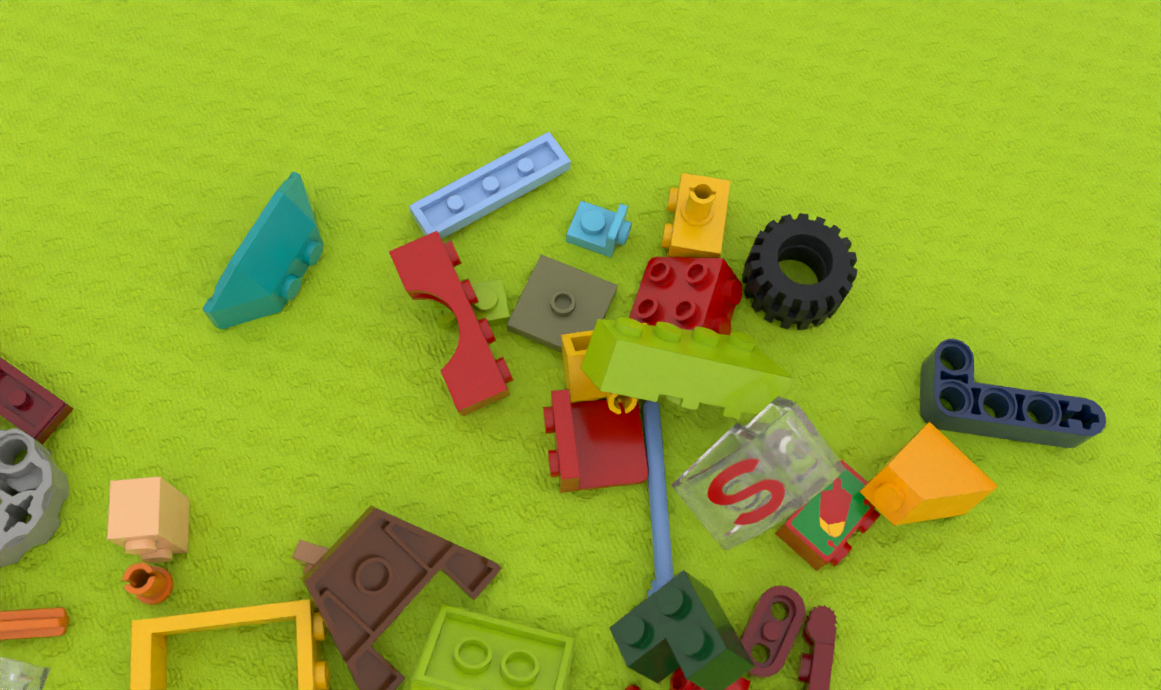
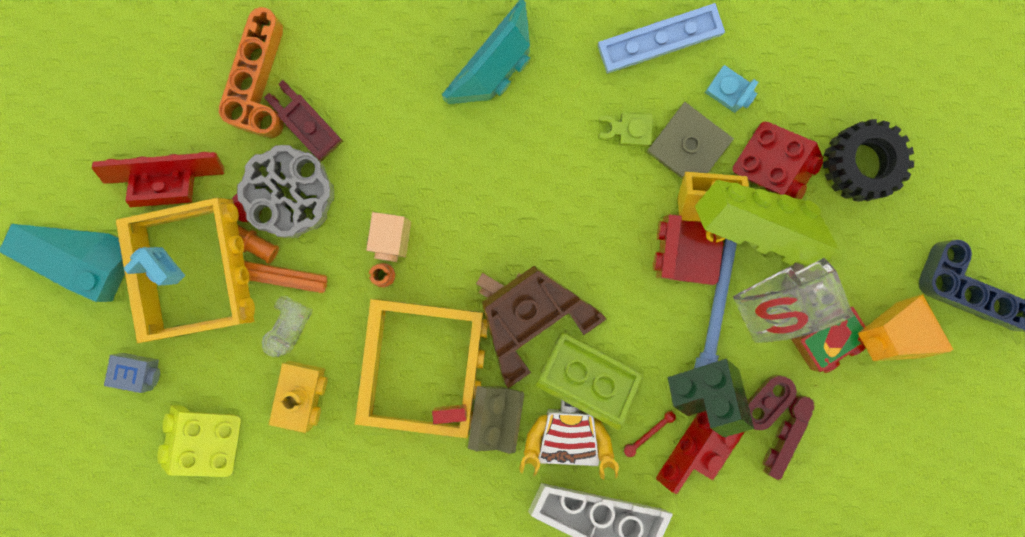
camera: 25 degrees right, 20 degrees up
(430, 274) = (618, 184): red arch -> none
(698, 217) = (806, 101): yellow brick -> none

